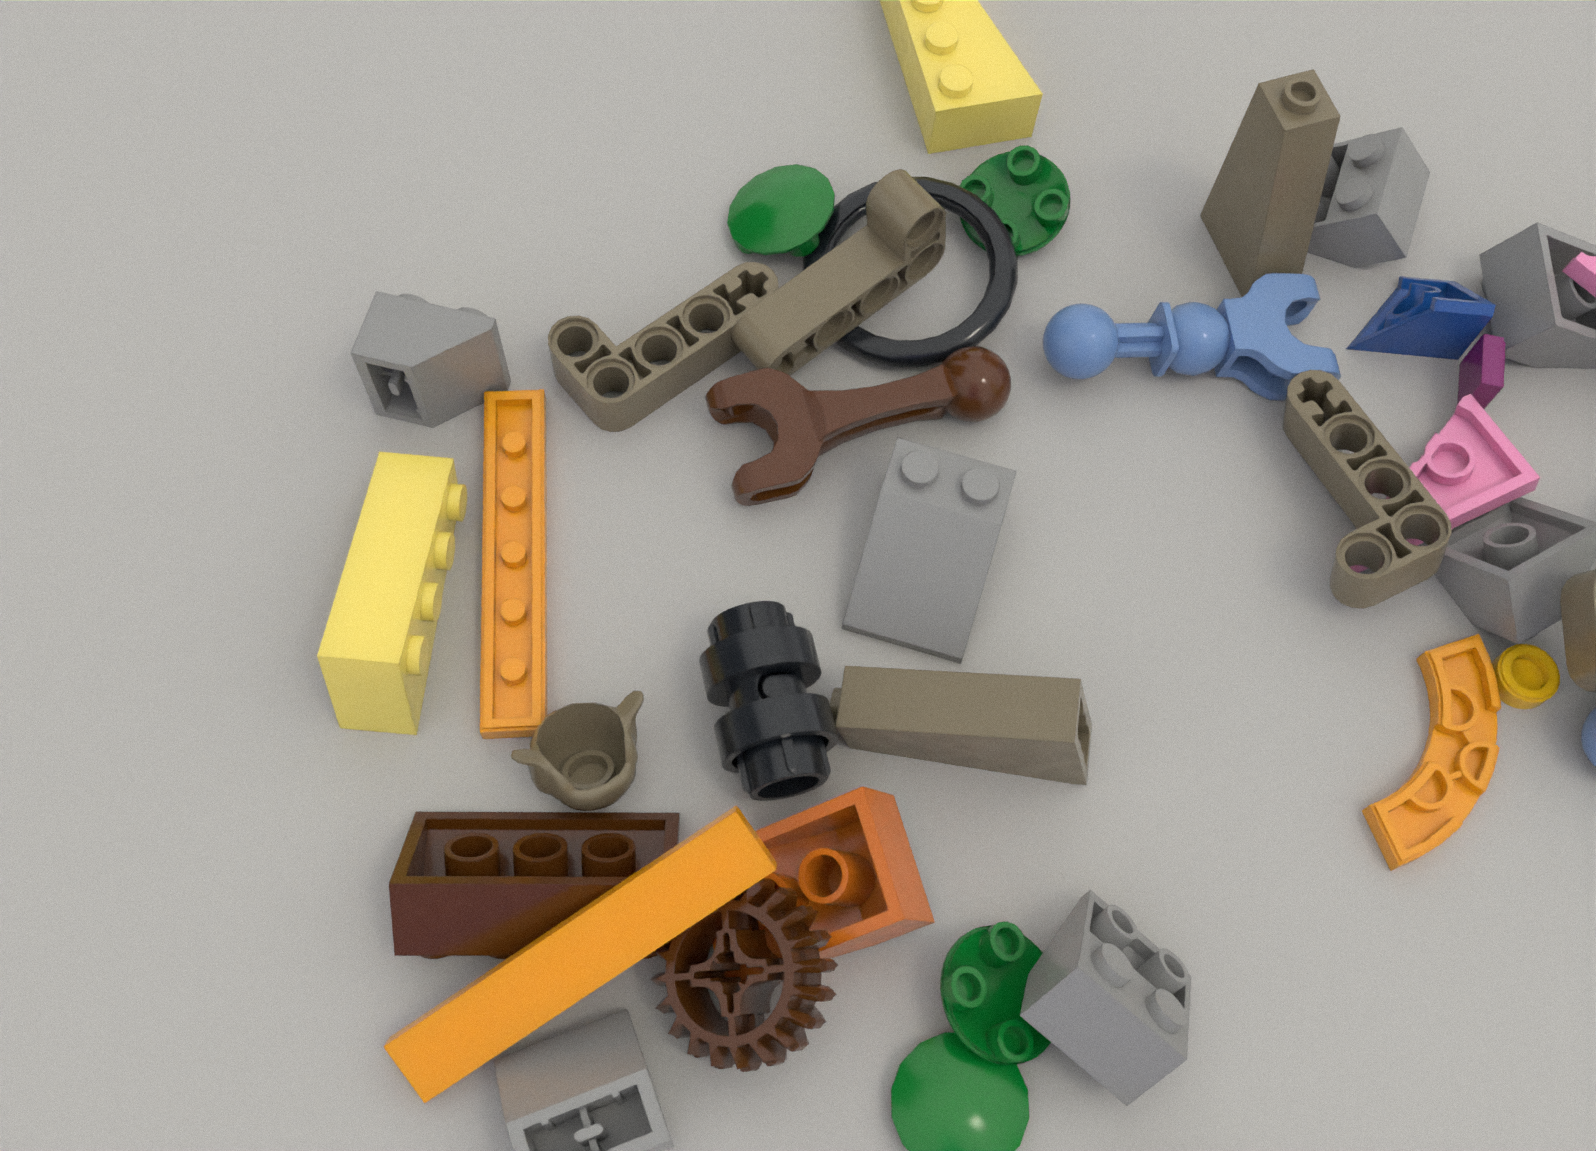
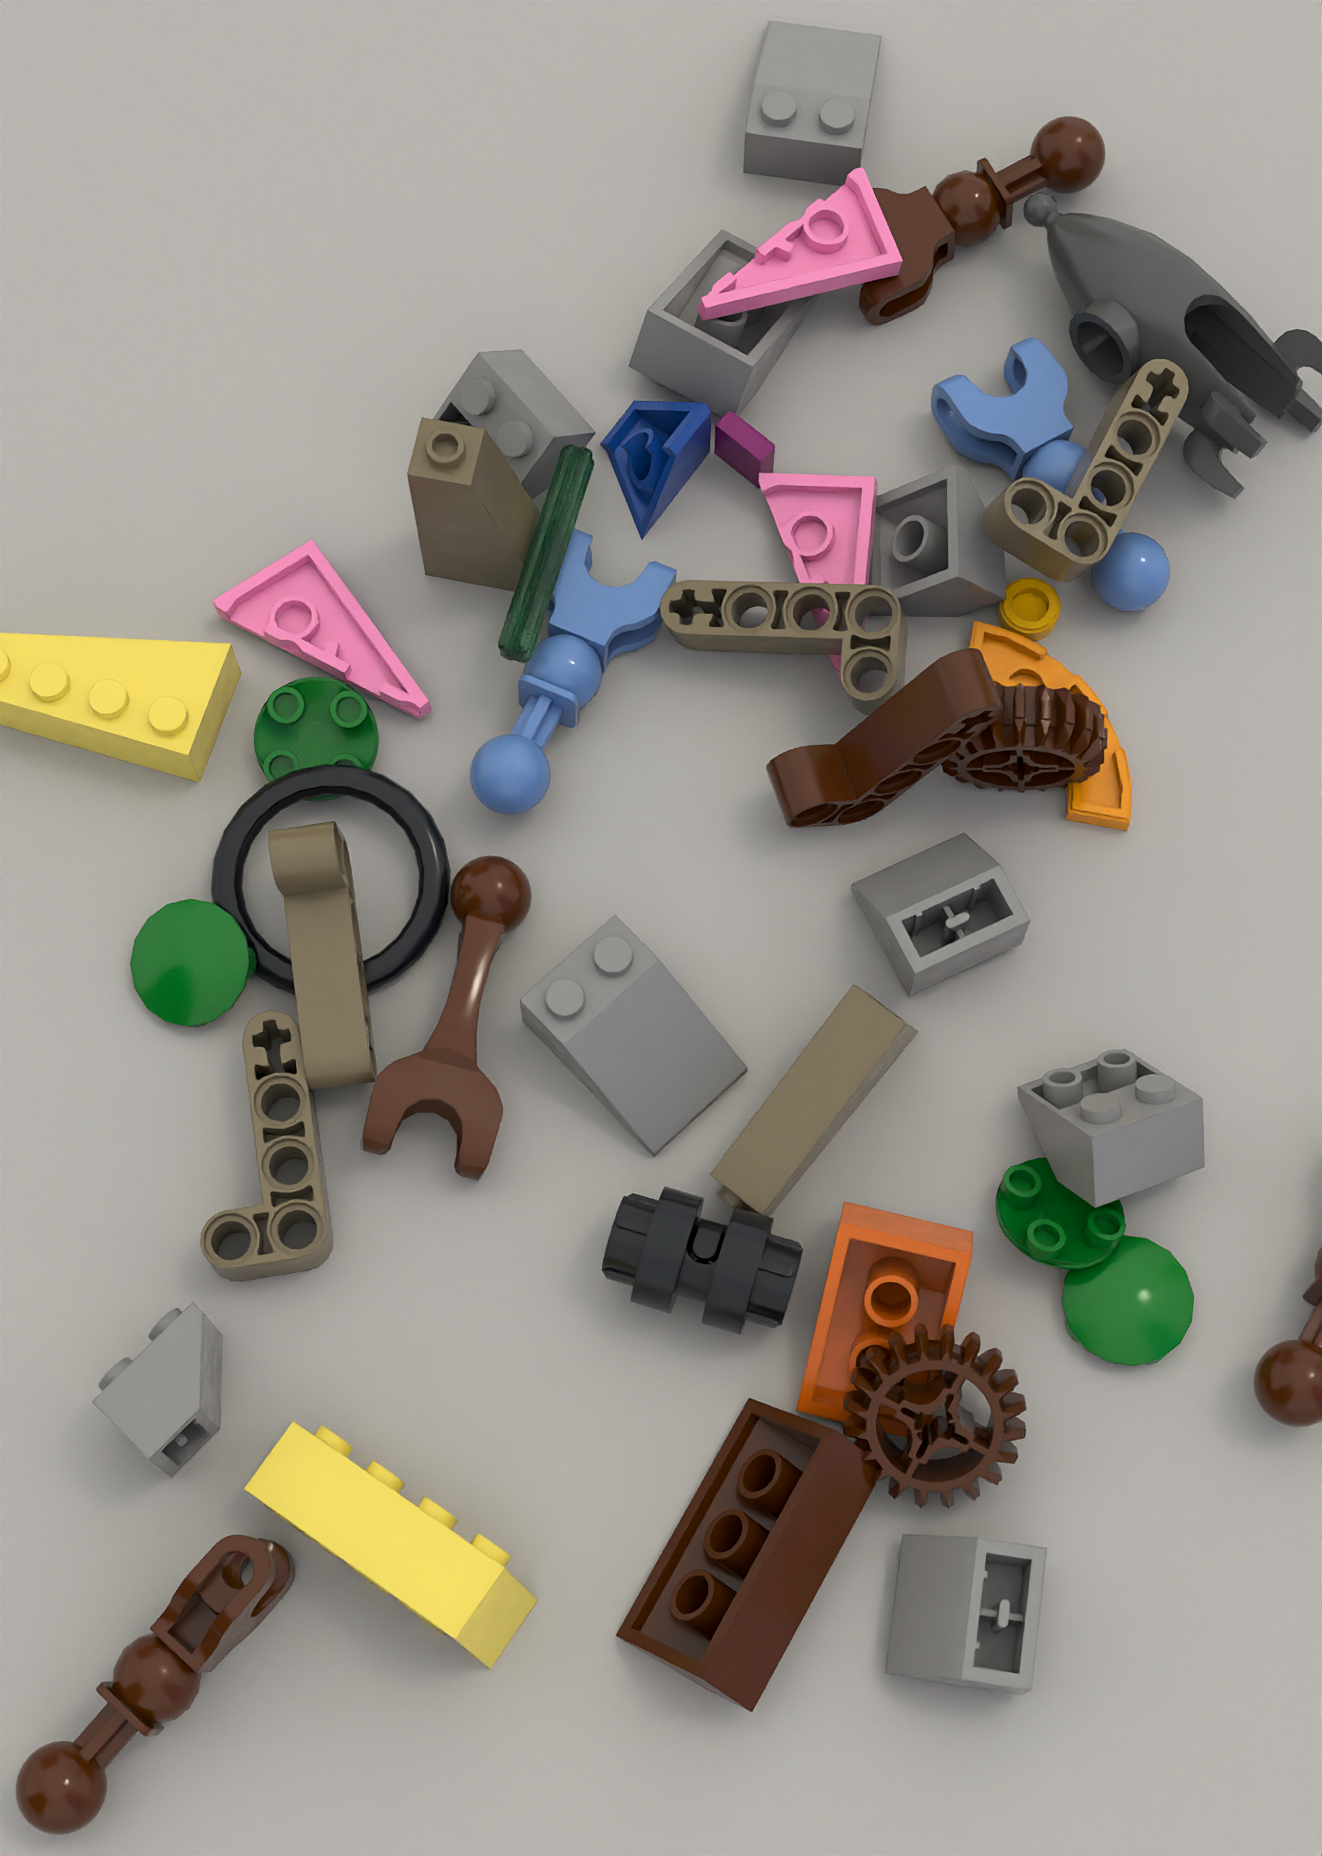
camera: 55 degrees left, 5 degrees up
(198, 471) = (156, 1678): none -> reddish brown piece
(514, 565) = (414, 1419): light orange tile -> none
(581, 954) = (849, 1545): light orange tile -> none
(585, 753) = (657, 1447): dark tan hair -> none
(1107, 154) = (314, 616): none -> bright pink wing
(1202, 744) = (942, 912): none -> light grey slope
(1278, 265) = (546, 554): none -> clear green axle
(1317, 609) = (890, 747): none -> reddish brown beam
(1406, 717) = (1036, 744): none -> reddish brown gear

